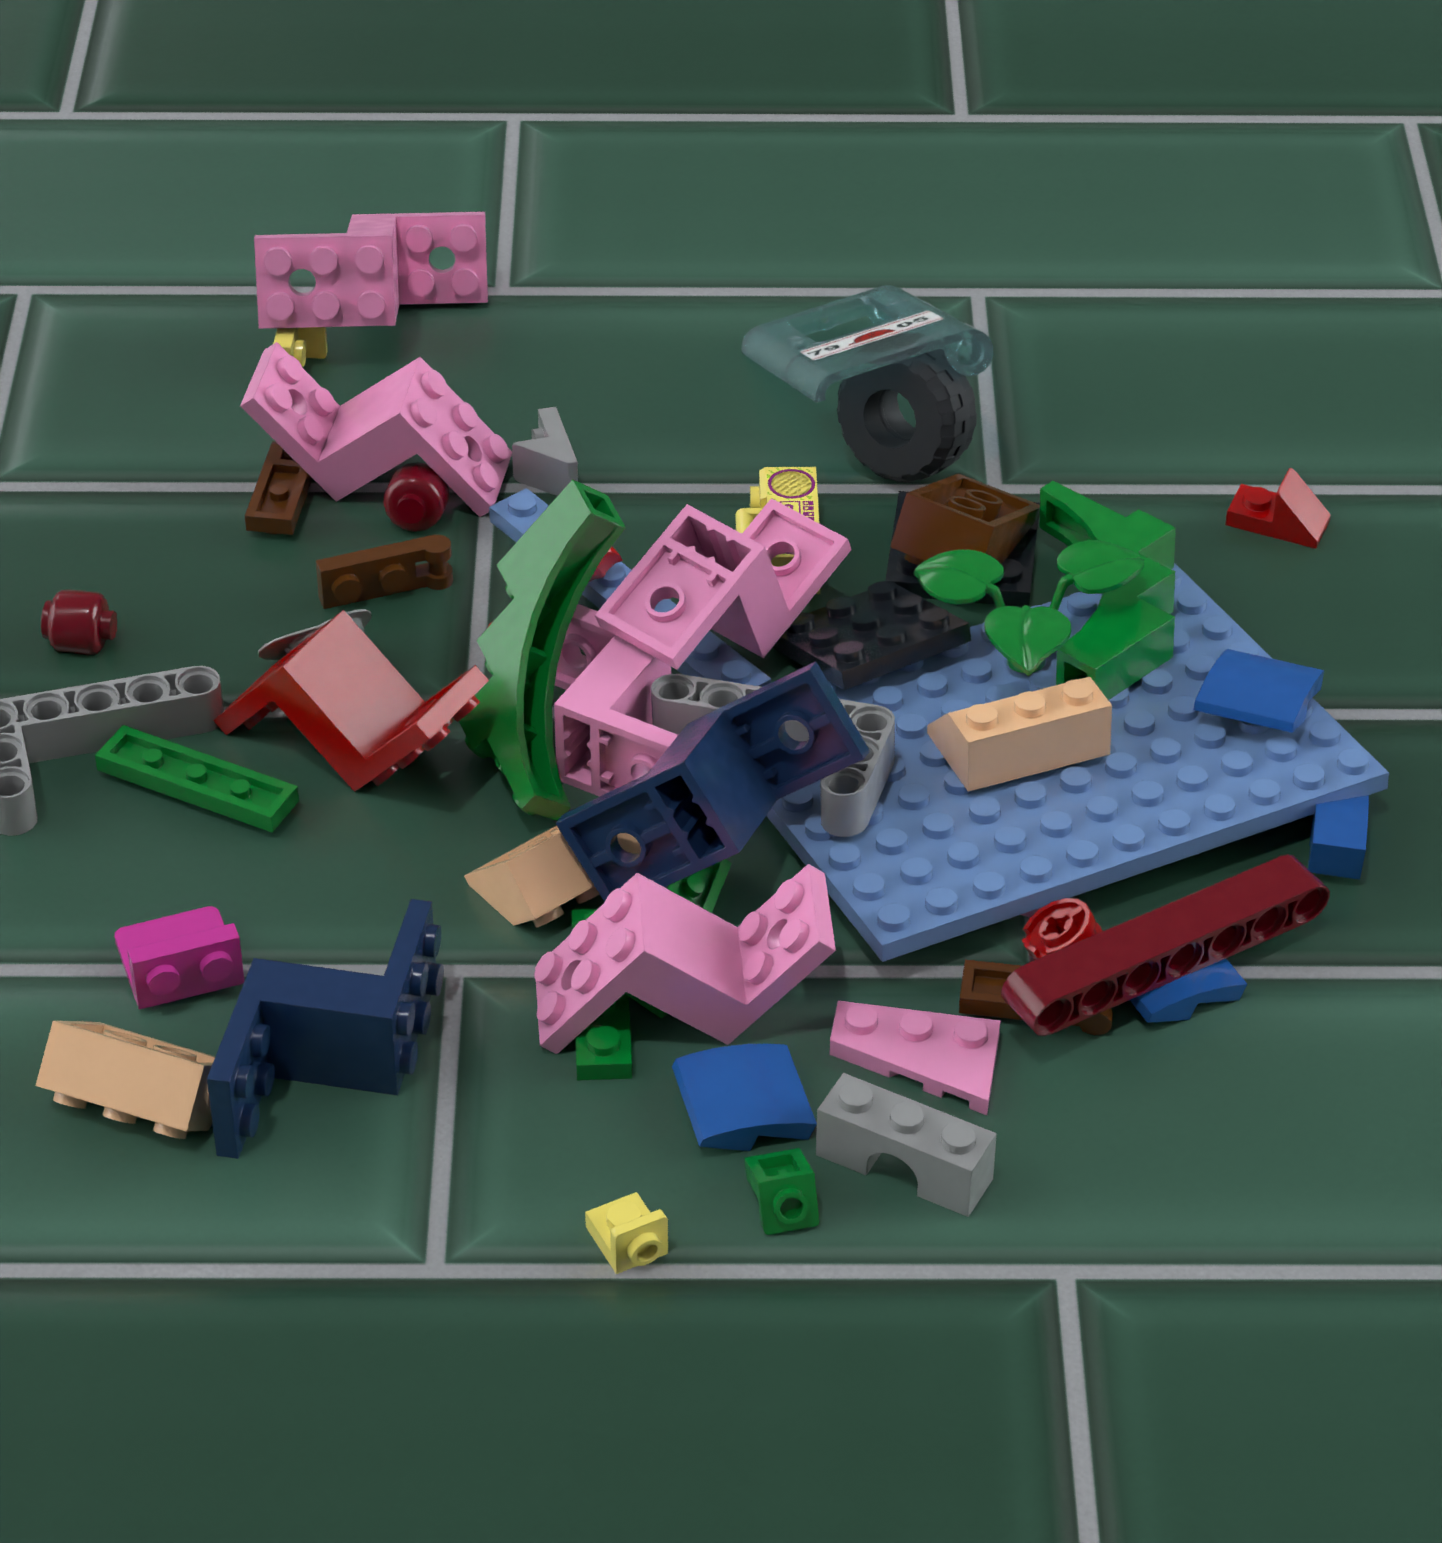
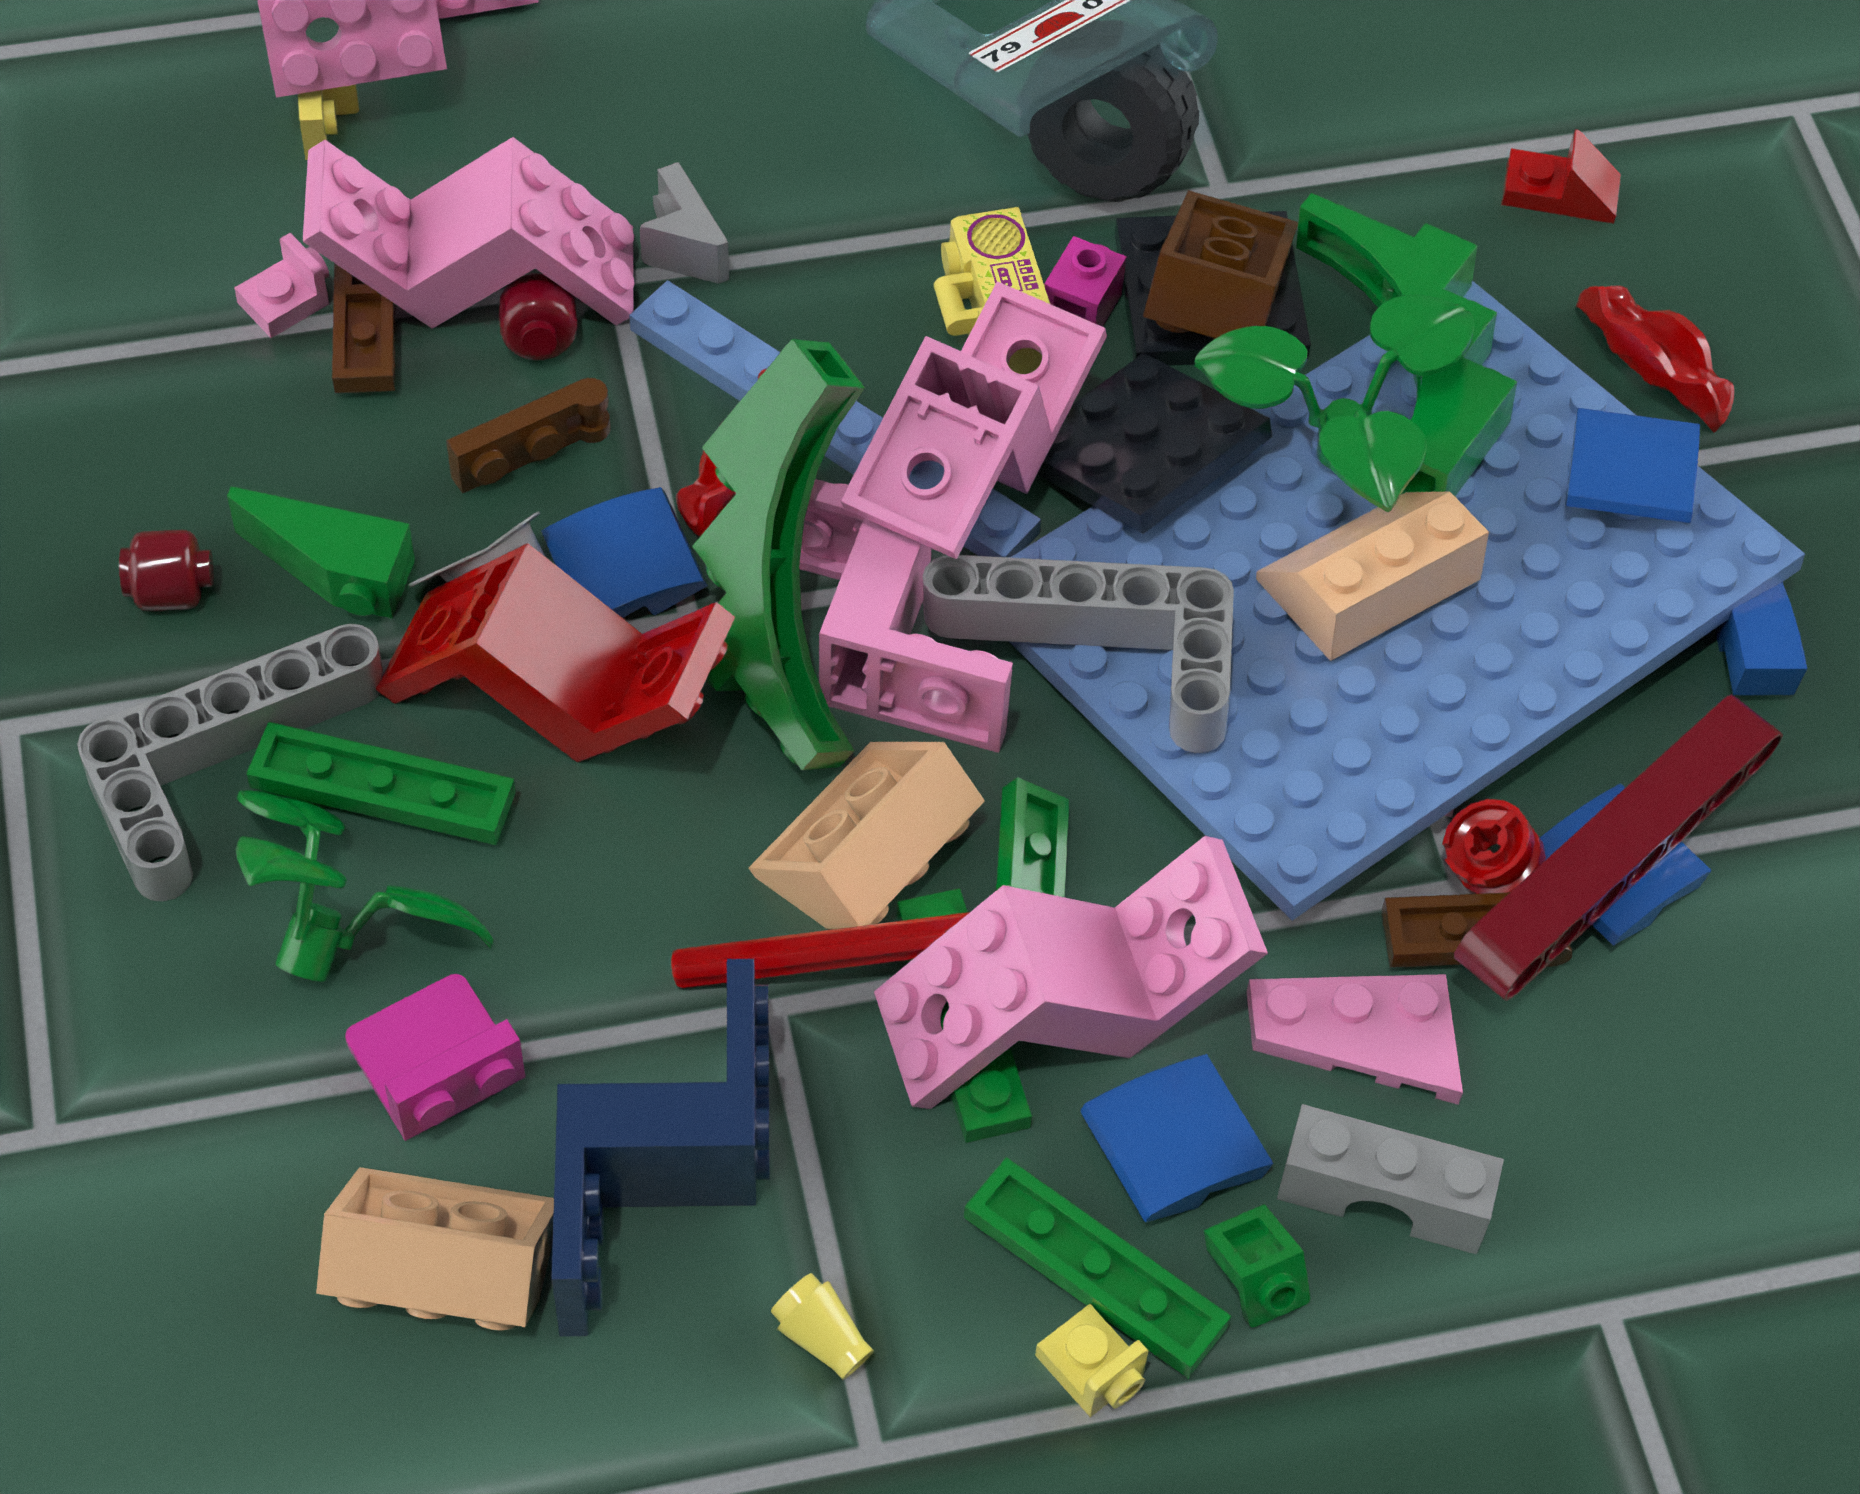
camera: 15 degrees left, 15 degrees up
(111, 859) = (313, 928): none -> green plant
(206, 624) = (335, 552): none -> green slope
(231, 461) = (287, 289): none -> bright pink bracket
(417, 1169) = (821, 1325): none -> light yellow cone
(433, 651) = (627, 552): none -> blue slope
(494, 928) = (812, 950): none -> red axle
(651, 1168) = (1097, 1267): none -> green plate
(715, 784) = (1052, 733): dark blue bracket -> none
(866, 527) = (1087, 280): none -> dark pink brick
(1309, 624) = (1662, 350): none -> red piece

